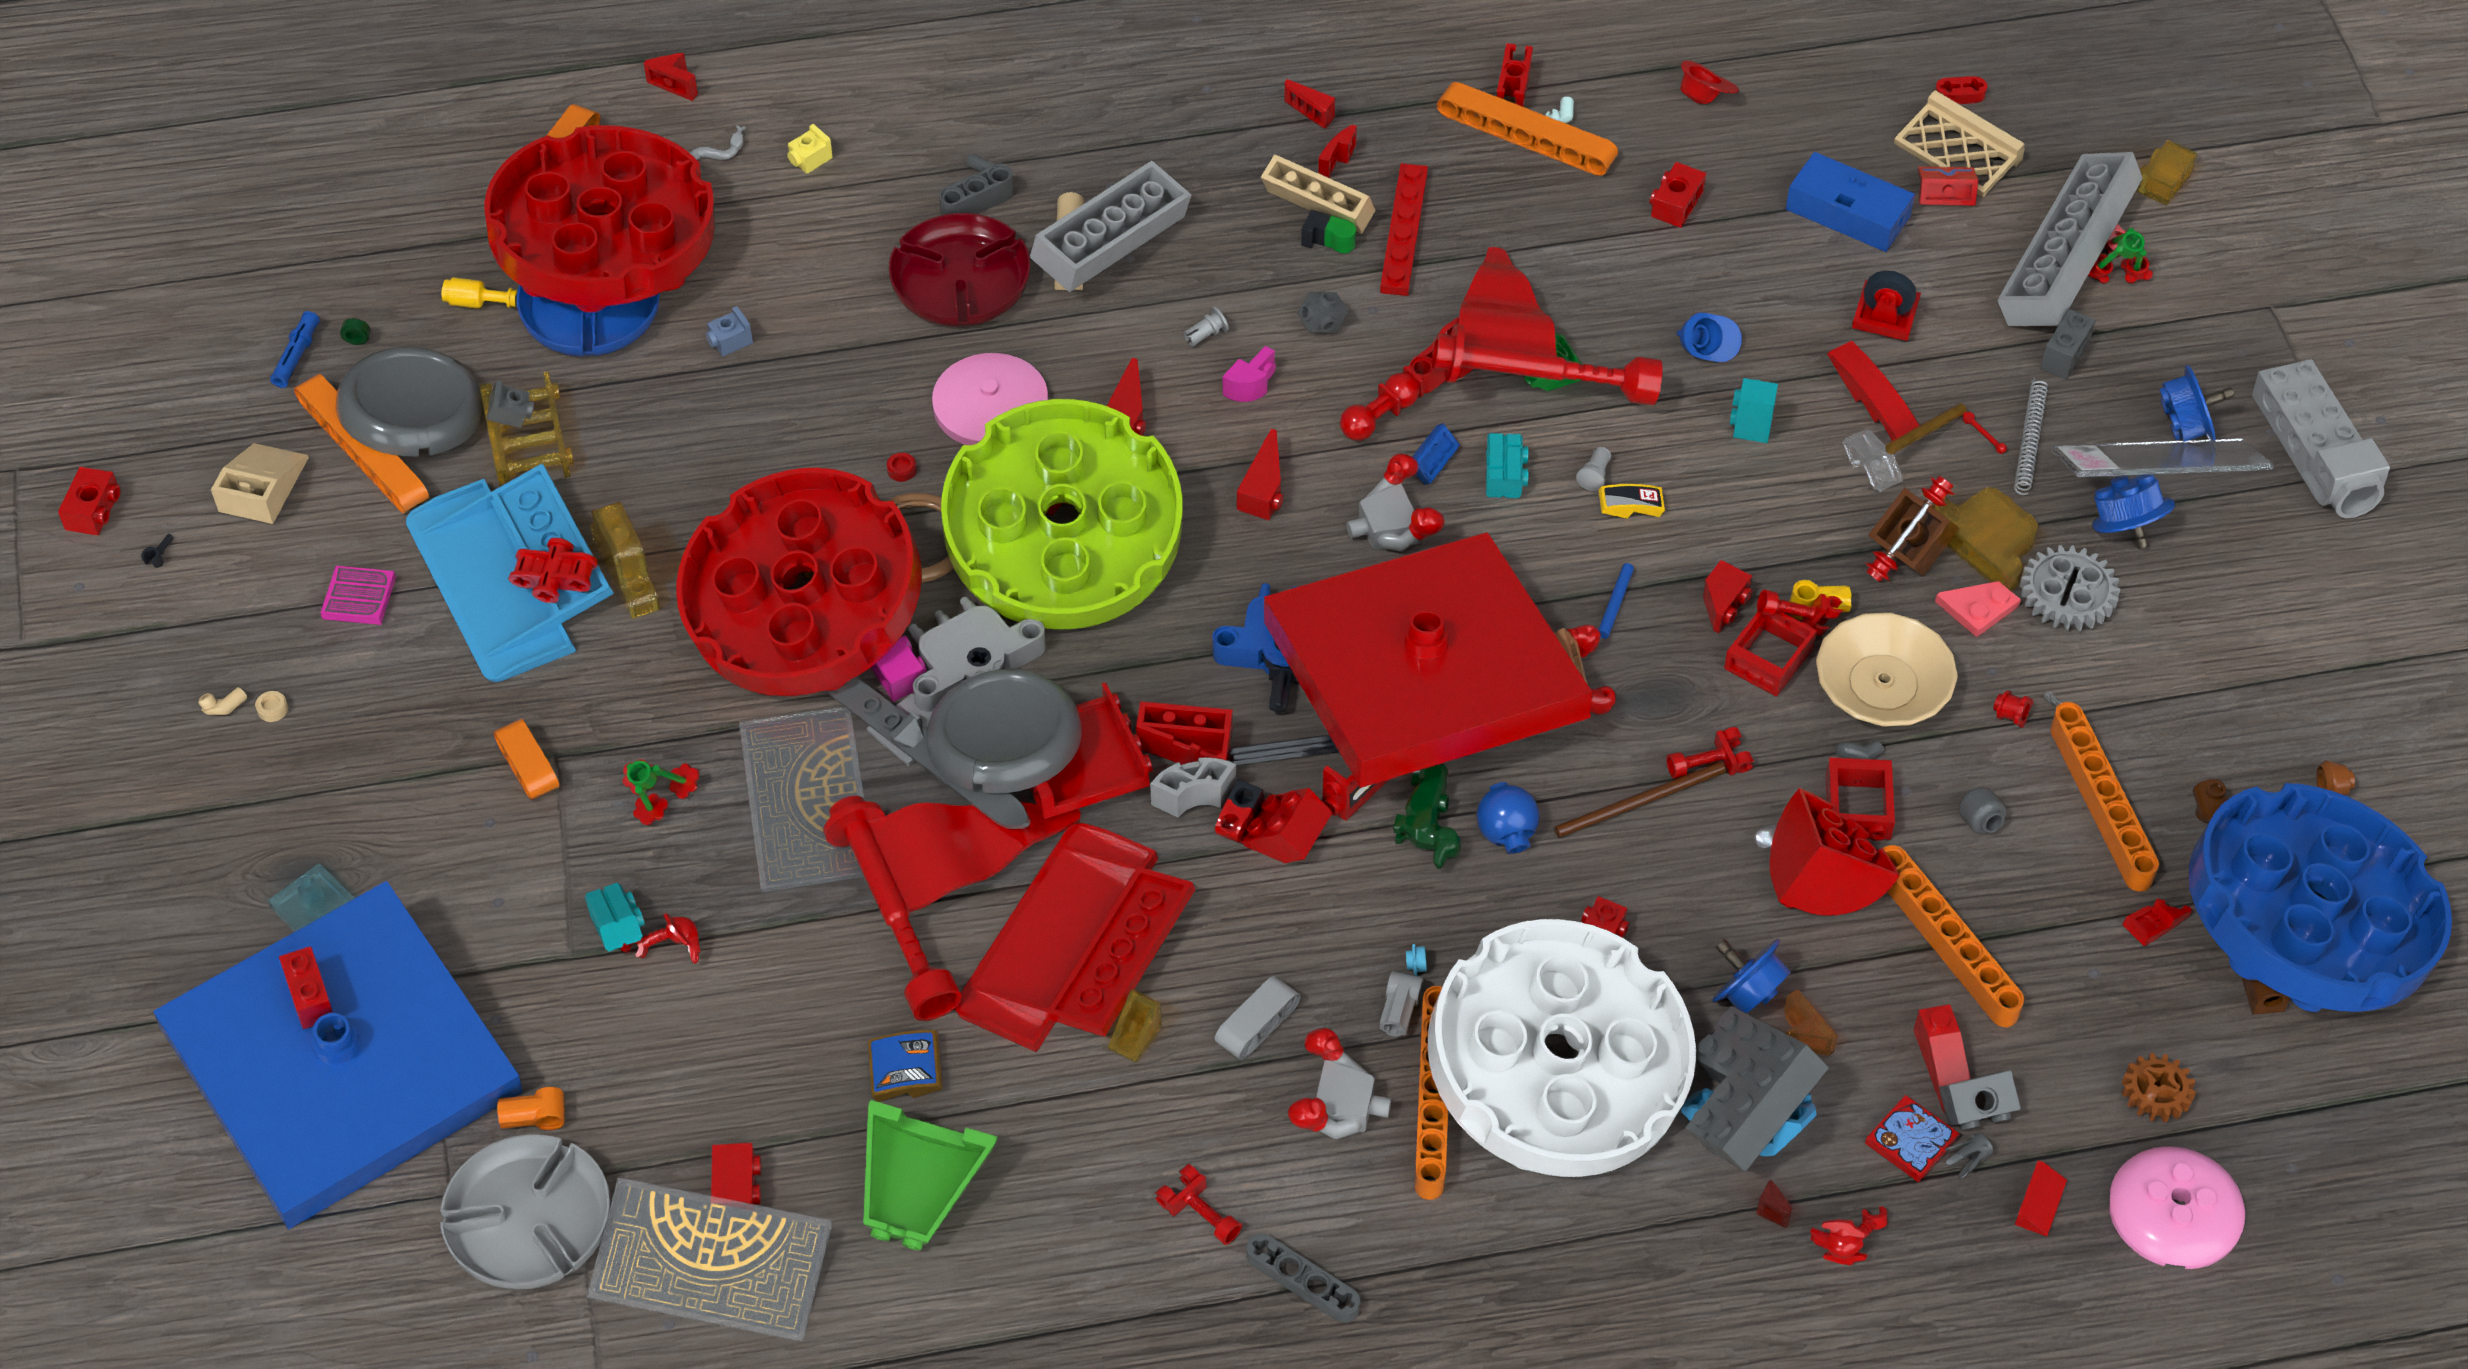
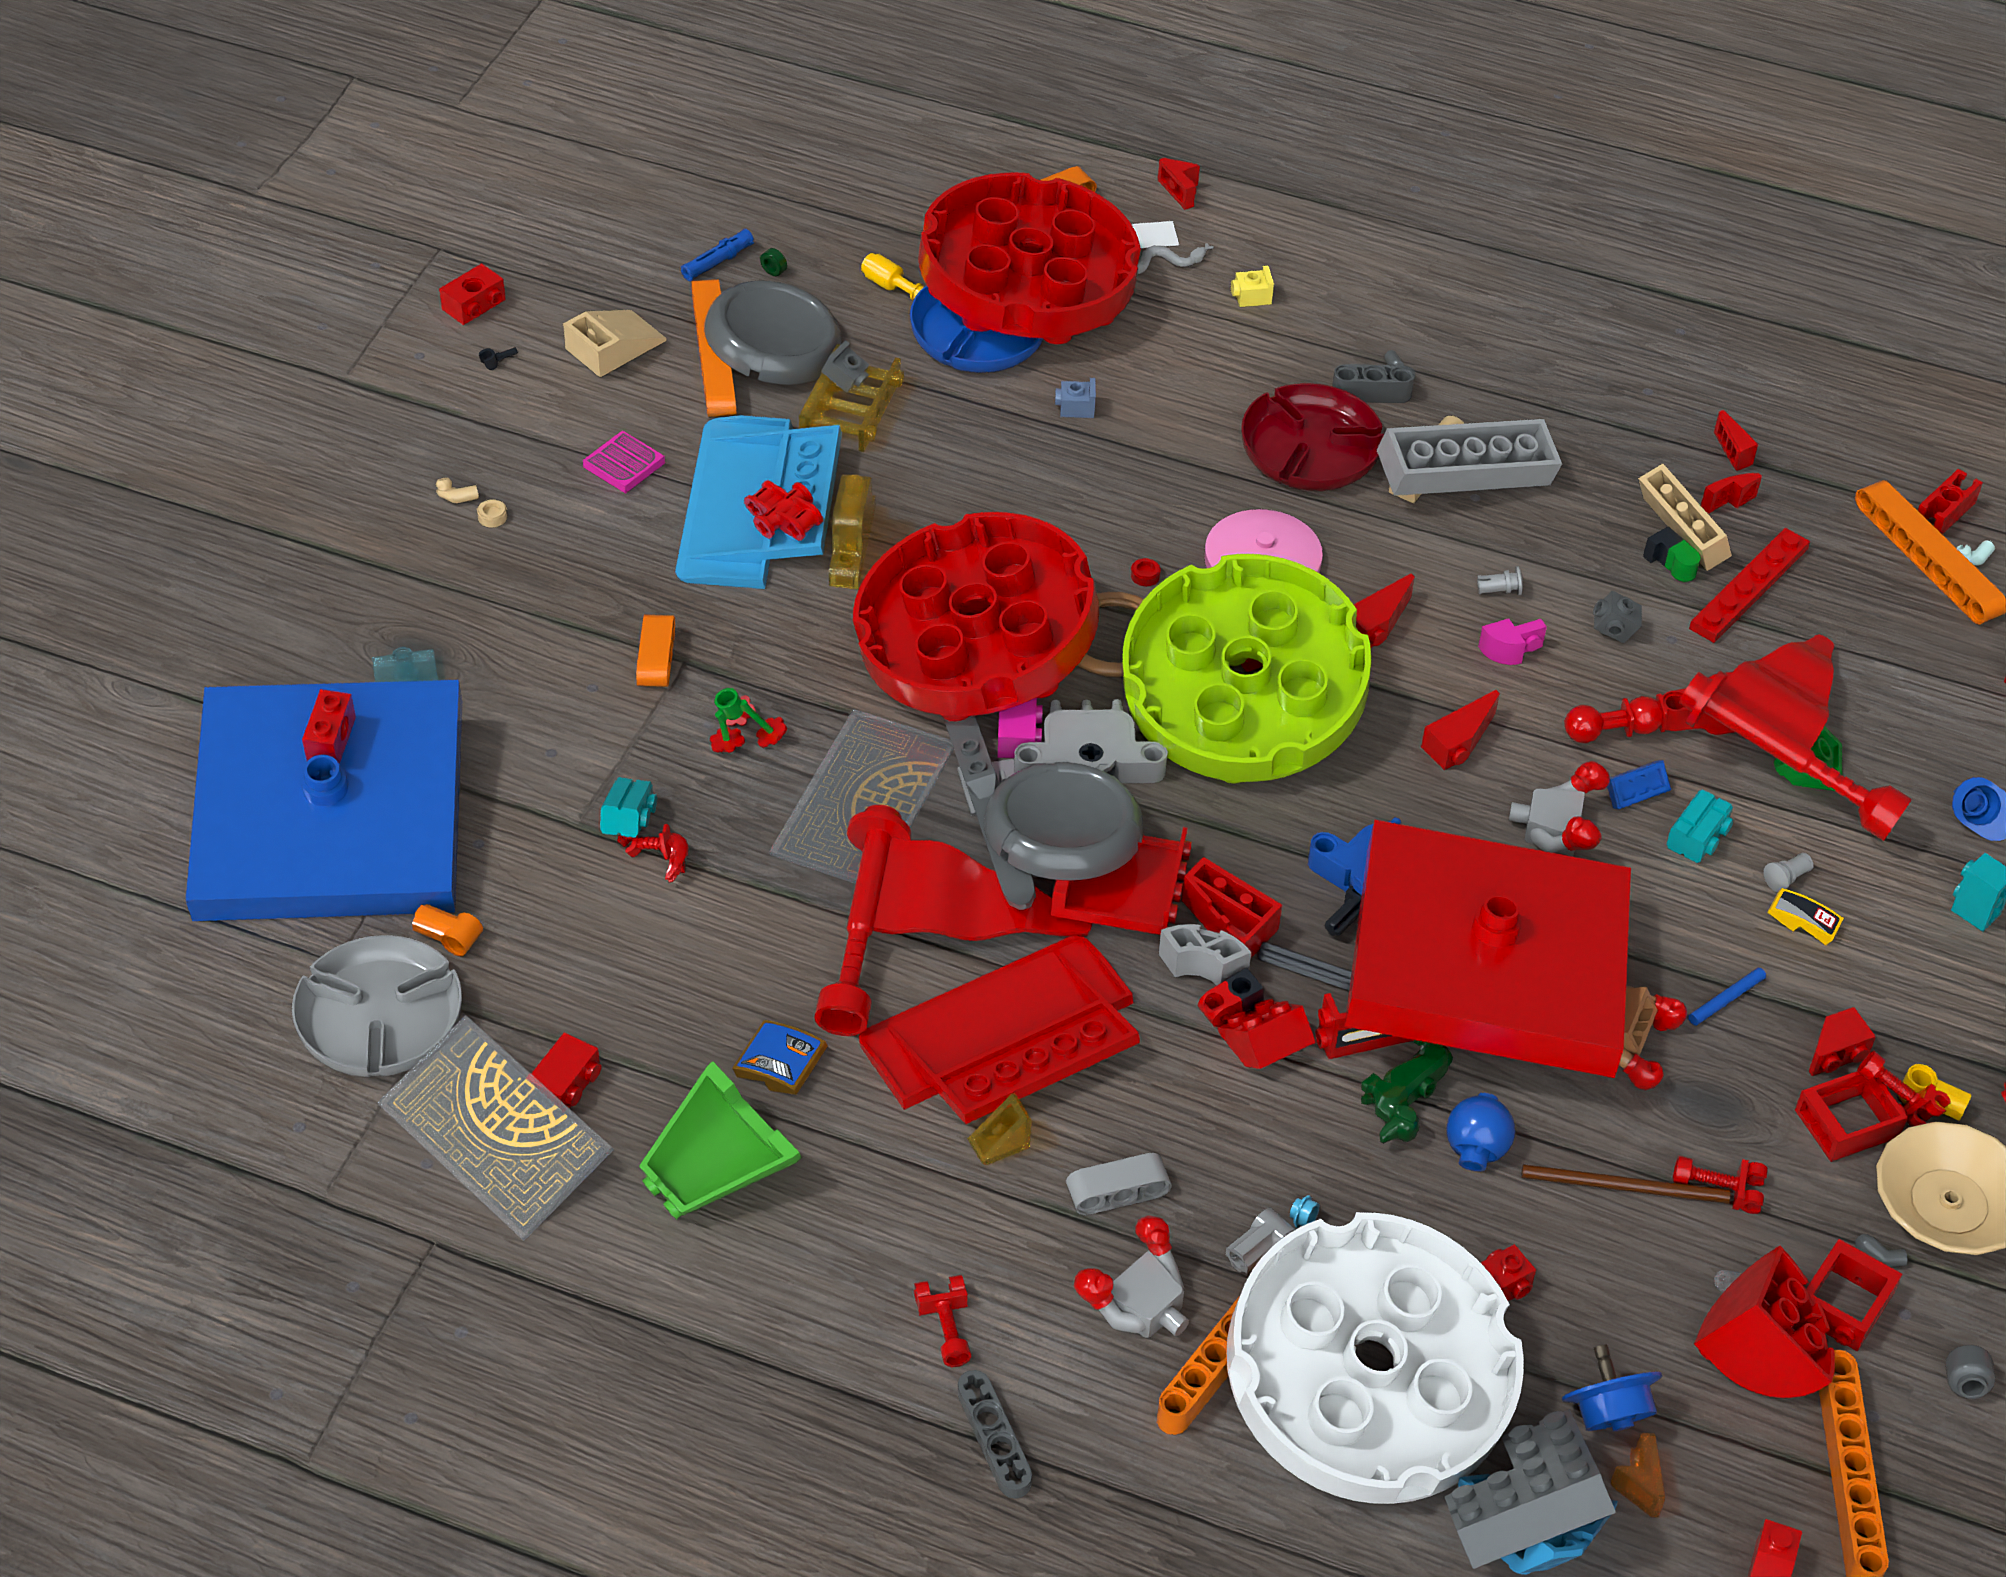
camera: 30 degrees right, 5 degrees down
(686, 134) = (1156, 234): none -> white sticker

